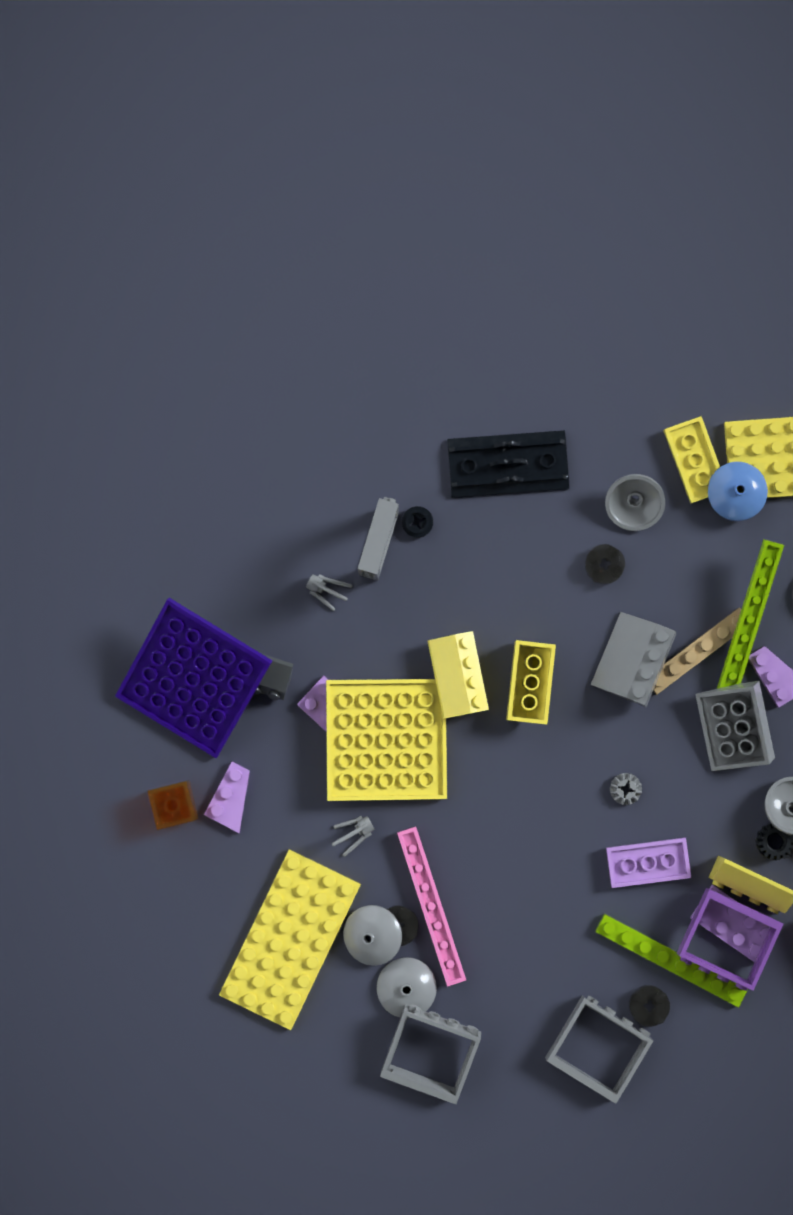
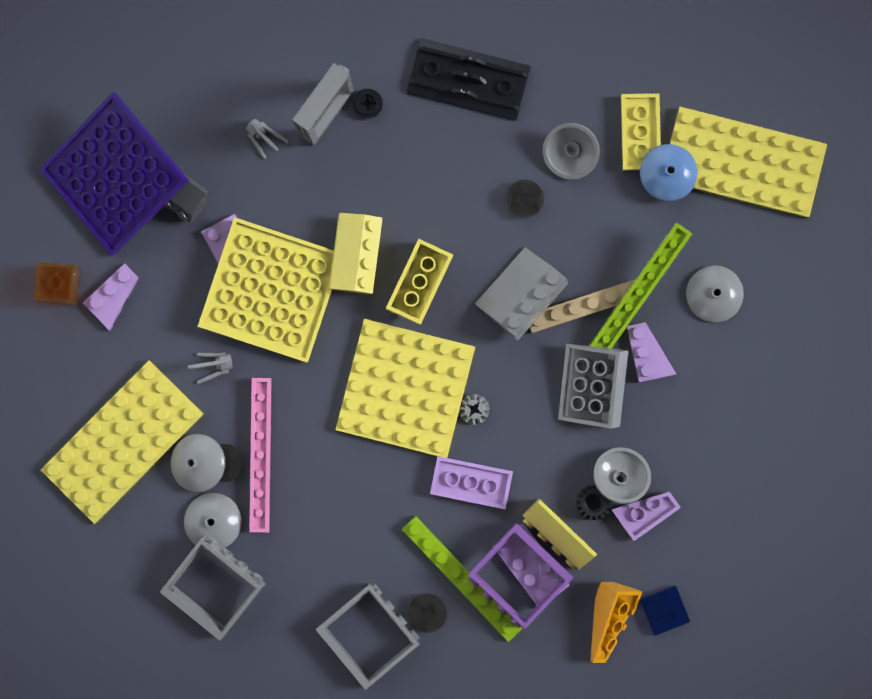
camera: 20 degrees right, 0 degrees up
(551, 791) = (405, 388): none -> light yellow plate

